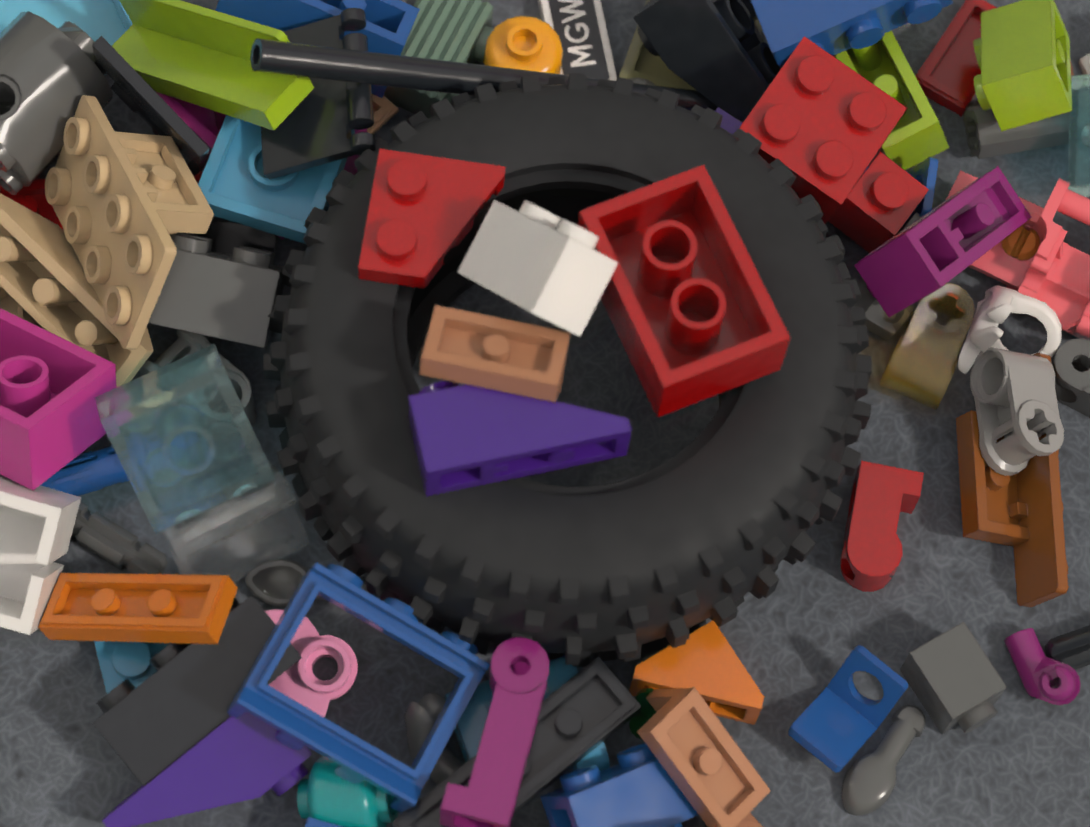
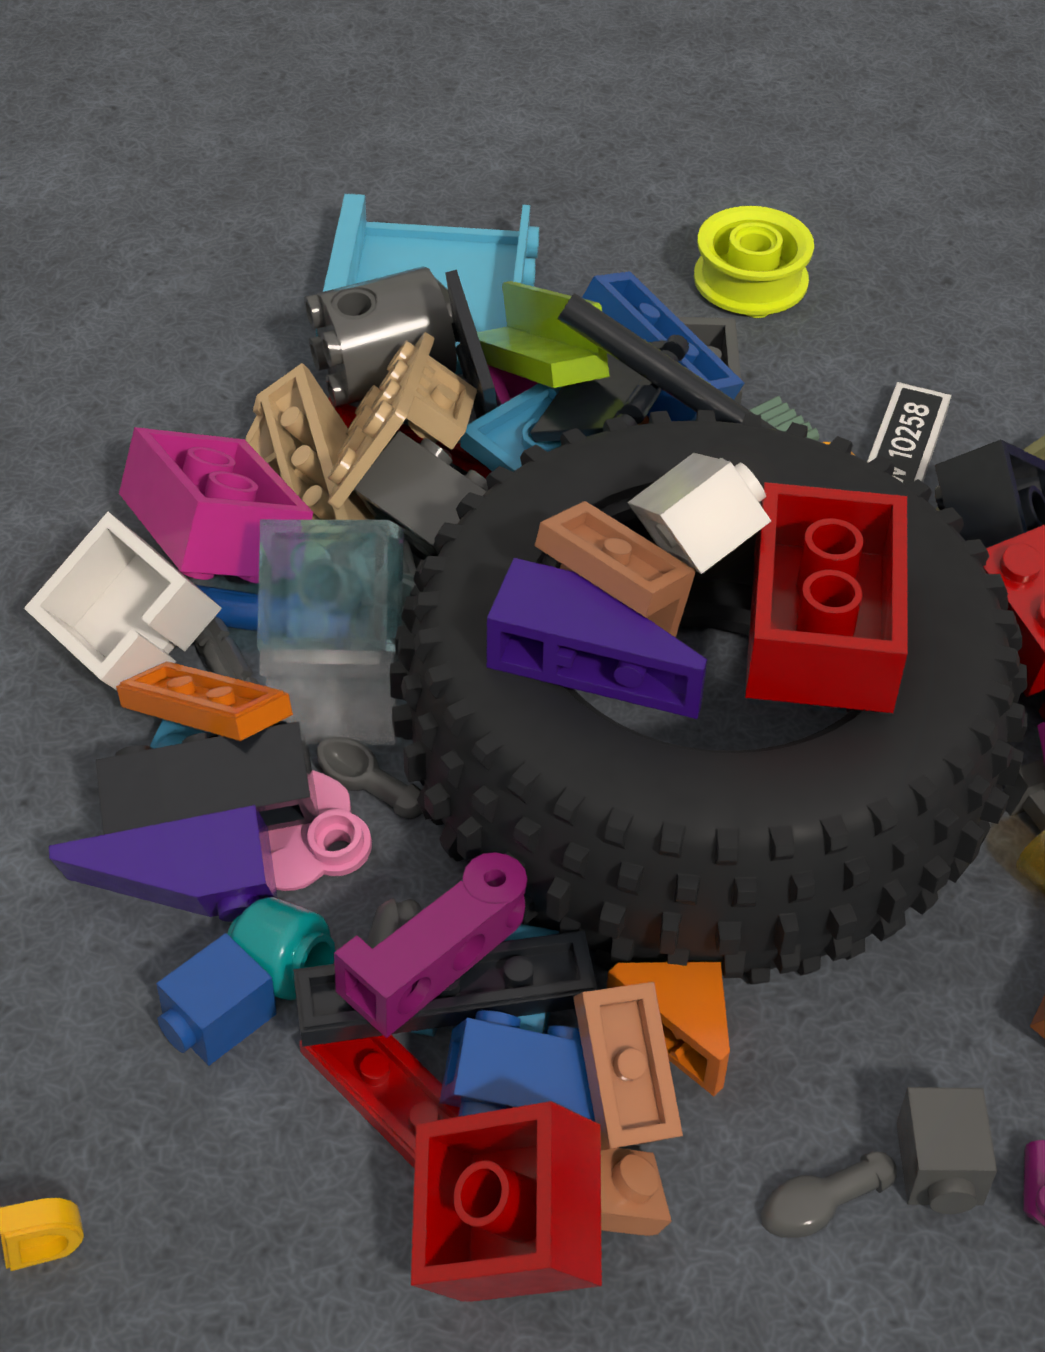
camera: 35 degrees right, 20 degrees down
(304, 727) = (294, 887): blue window -> none
(420, 213) = (619, 462): red wing -> none
(843, 718) = (808, 1129): blue bracket -> none
(870, 539) = (940, 971): red leg -> none

